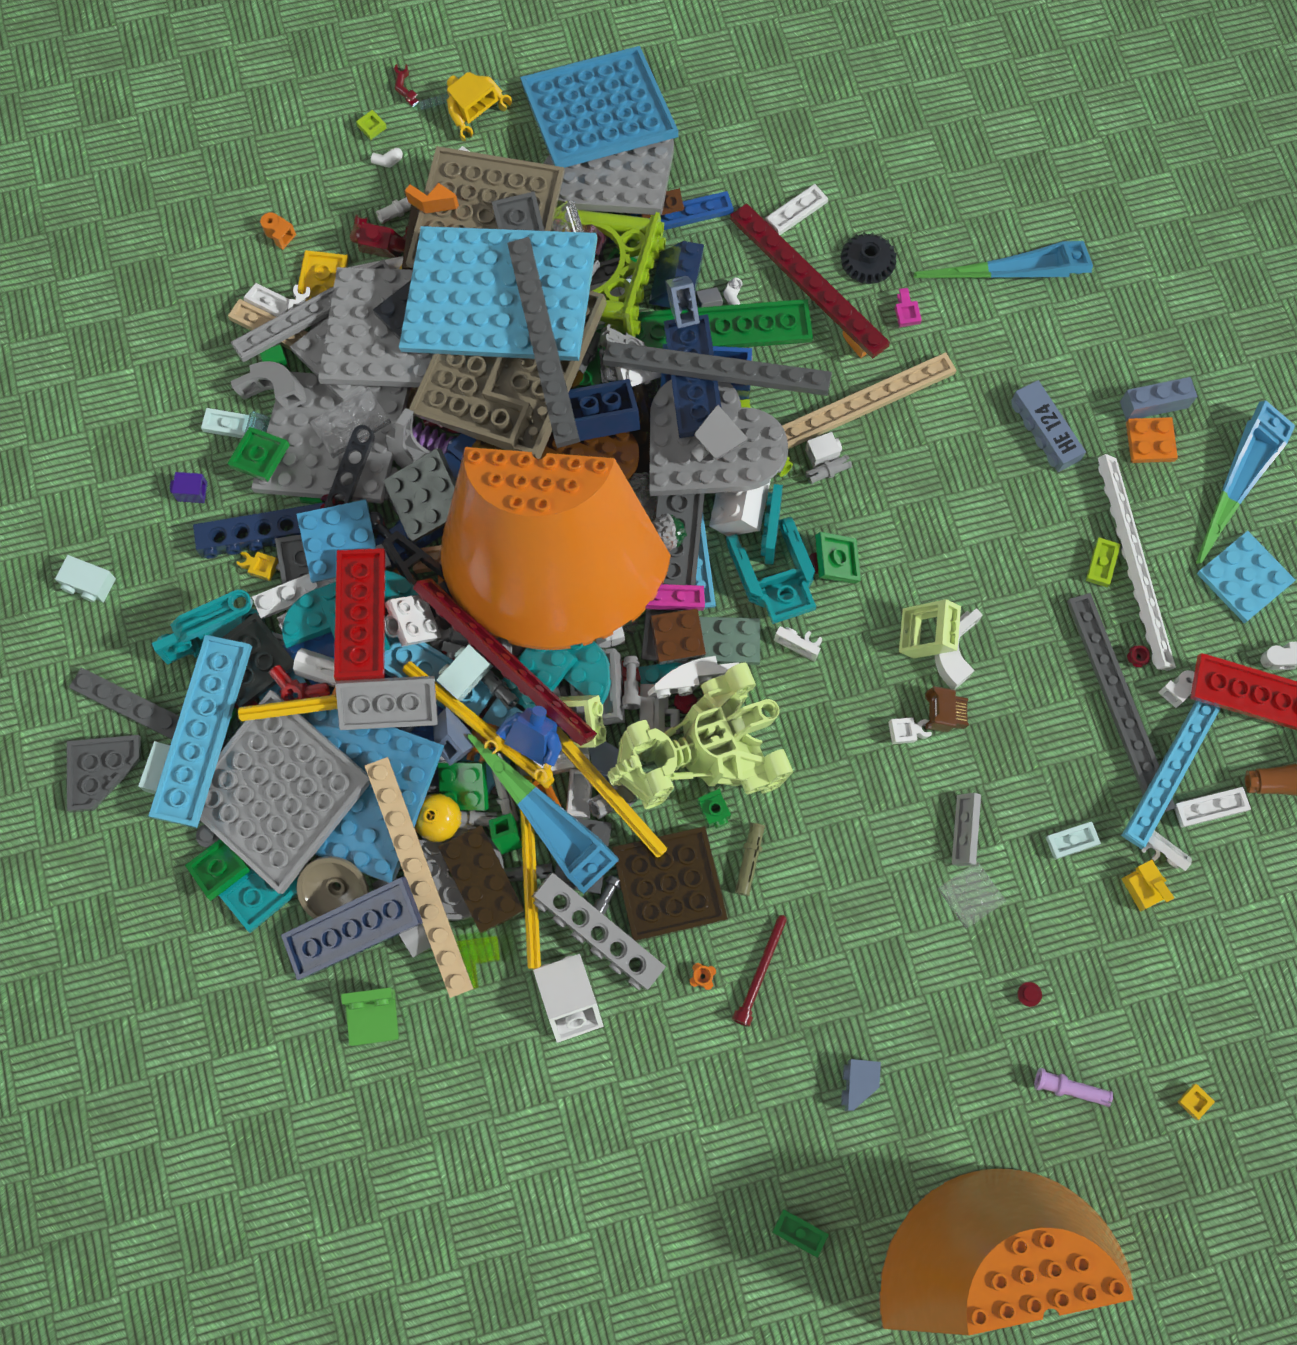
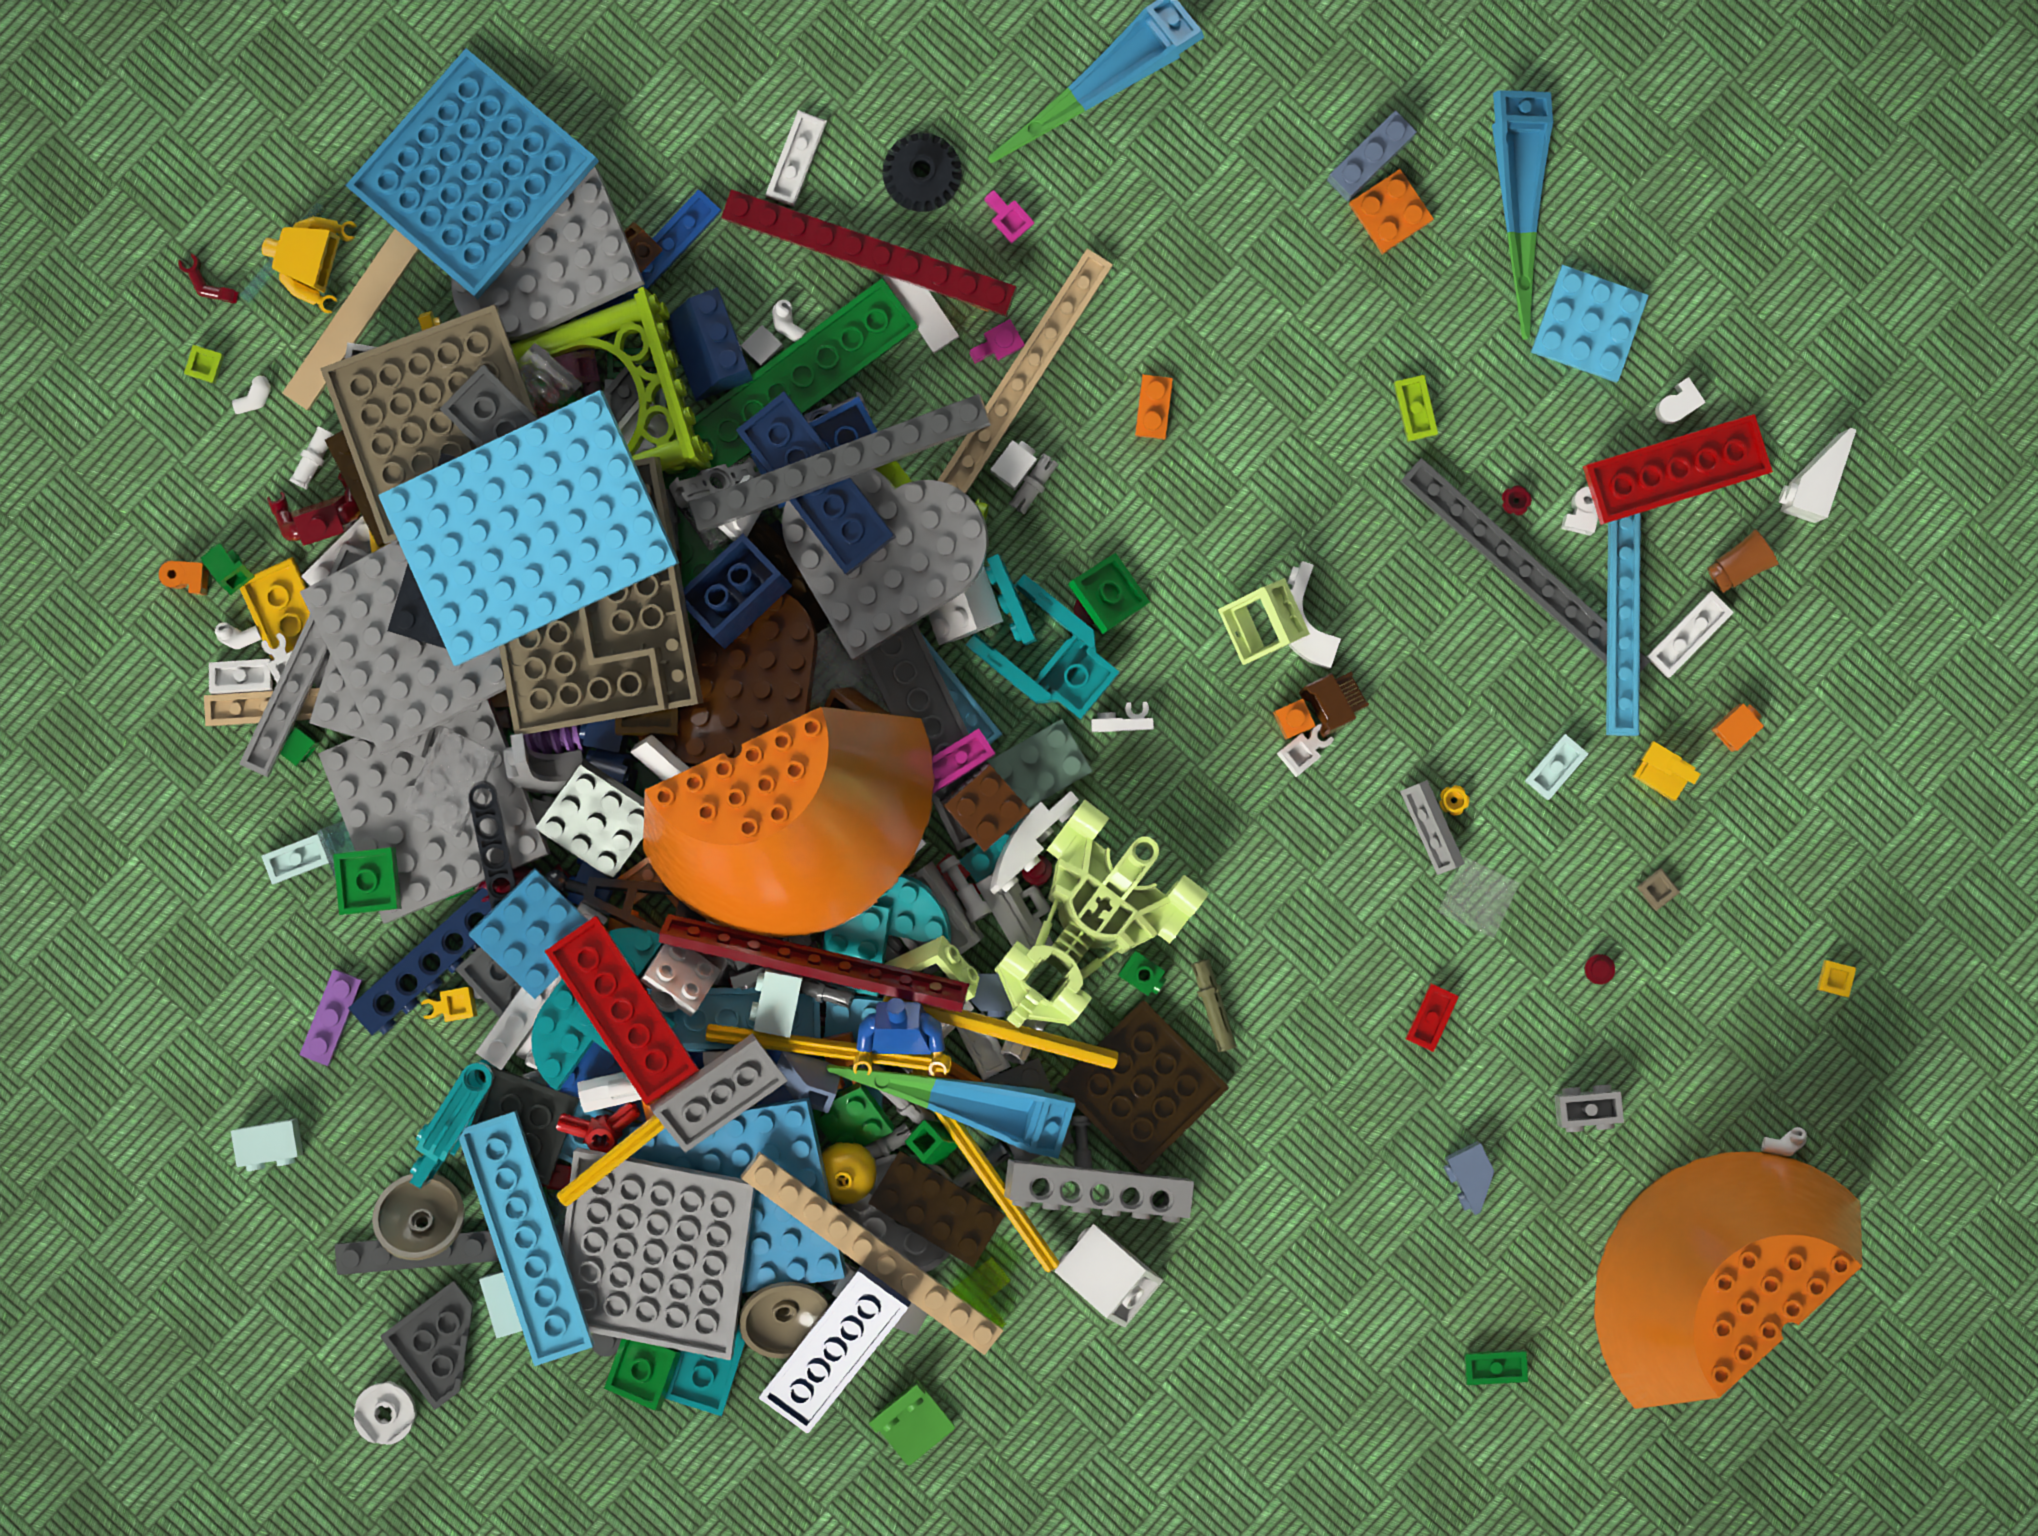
camera: 25 degrees left, 15 degrees up
(45, 802) = (386, 1395): none -> white plate
(144, 679) = (406, 1206): none -> dark tan dish
(178, 530) = (331, 1017): none -> medium lavender plate
(189, 487) = (308, 964): dark purple brick -> none
(271, 376) = (341, 776): light grey arch -> none
(281, 279) = (234, 637): none -> white arm
(304, 236) = (227, 568): none -> green brick
(437, 200) = (372, 444): orange slope -> none
(489, 144) = (352, 318): none -> tan tile
(543, 343) = (625, 568): dark grey plate -> none
(670, 530) = (902, 694): light grey piece -> none
(682, 296) = (737, 388): sand blue torso -> none
(698, 970) = (1245, 1168): orange plate -> none
(717, 436) = (895, 555): light grey torso -> none
(744, 1014) = (1305, 1177): dark red piece -> none
(822, 344) = (925, 312): none -> white tile
(858, 376) = (1001, 342): none -> dark pink plate
(894, 956) = (1431, 1017): none -> red plate
(913, 705) = (1294, 719): none -> orange brick
(932, 468) = (1153, 407): none -> orange plate
(976, 1087) = (1581, 1109): none -> light grey brick
(996, 819) = (1454, 808): none -> yellow plate
(1047, 426) = (1260, 272): sand blue brick -> none
(1062, 1085) = (1686, 1047): lavender pin -> none
(1099, 964) = (1658, 889): none -> dark tan tile
(1099, 1200) = (1787, 1144): none -> white arm
(1138, 570) = (1453, 384): white plate -> none
(1175, 856) = (1672, 715): white plate -> none
(1214, 886) = (1738, 726): none -> orange brick

